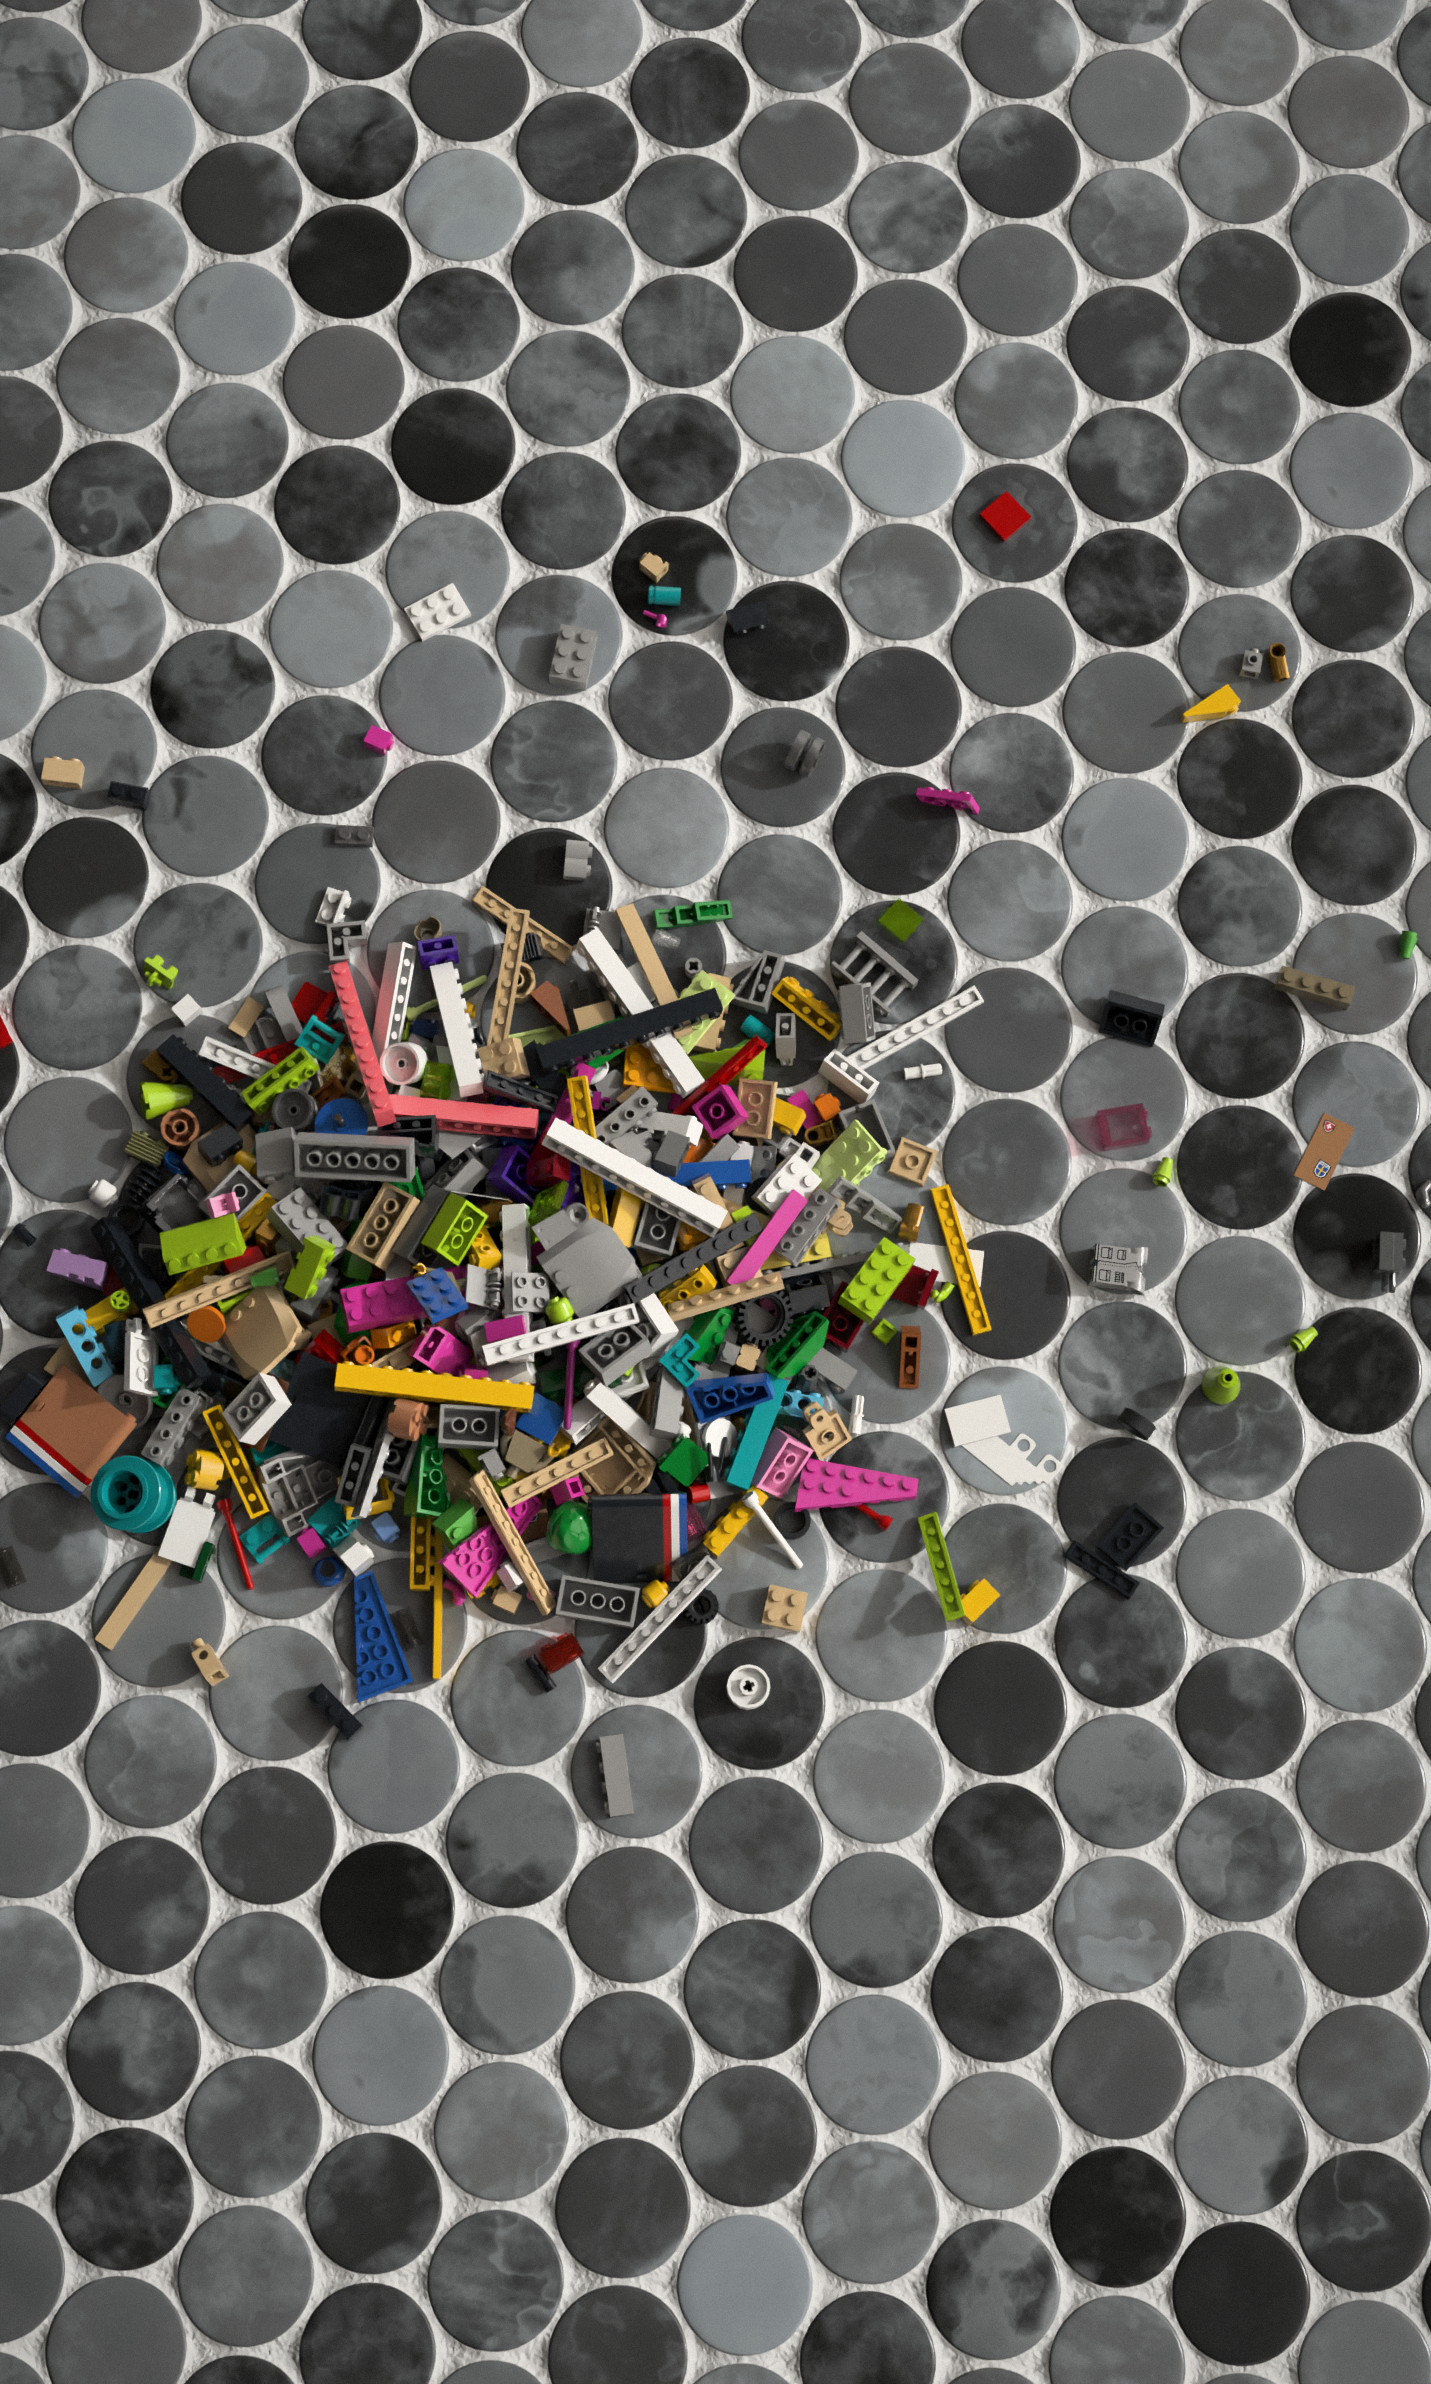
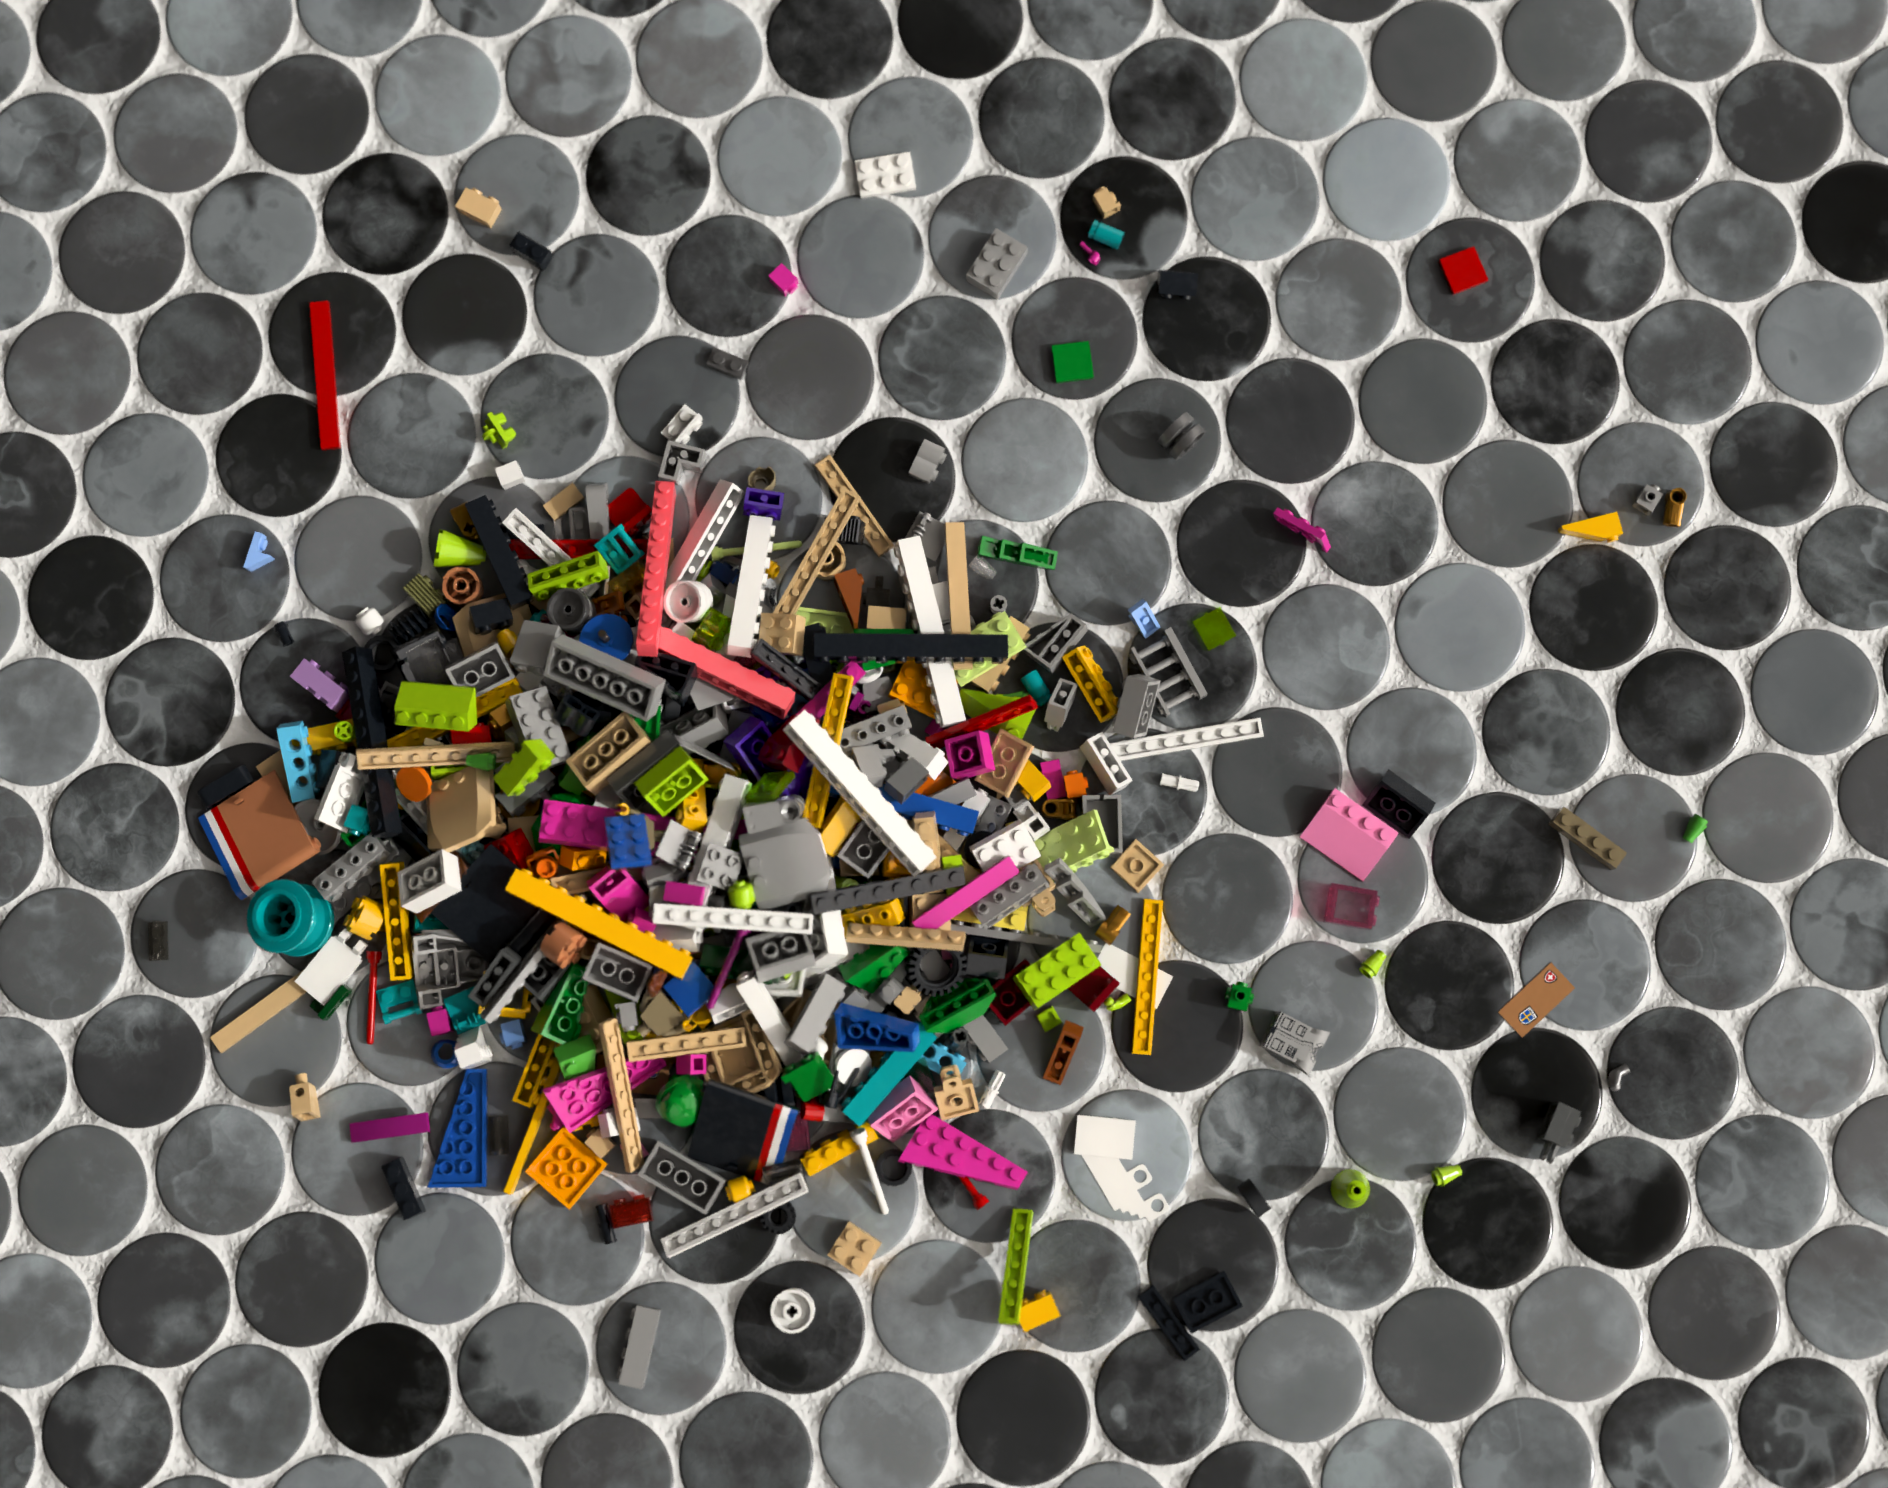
camera: 30 degrees right, 5 degrees up
(222, 1204) = (466, 677): bright pink bracket -> none
(300, 1659) = (389, 1127): none -> magenta slope
(483, 1635) = (566, 1167): none -> light orange plate
(676, 1361) = (835, 981): teal plate -> none
(677, 722) = (1072, 362): none -> green tile
(832, 932) = (1143, 618): none -> light blue slope
(1052, 1252) = (1235, 1003): none -> green brick
(1096, 1062) = (1349, 834): none -> bright pink slope

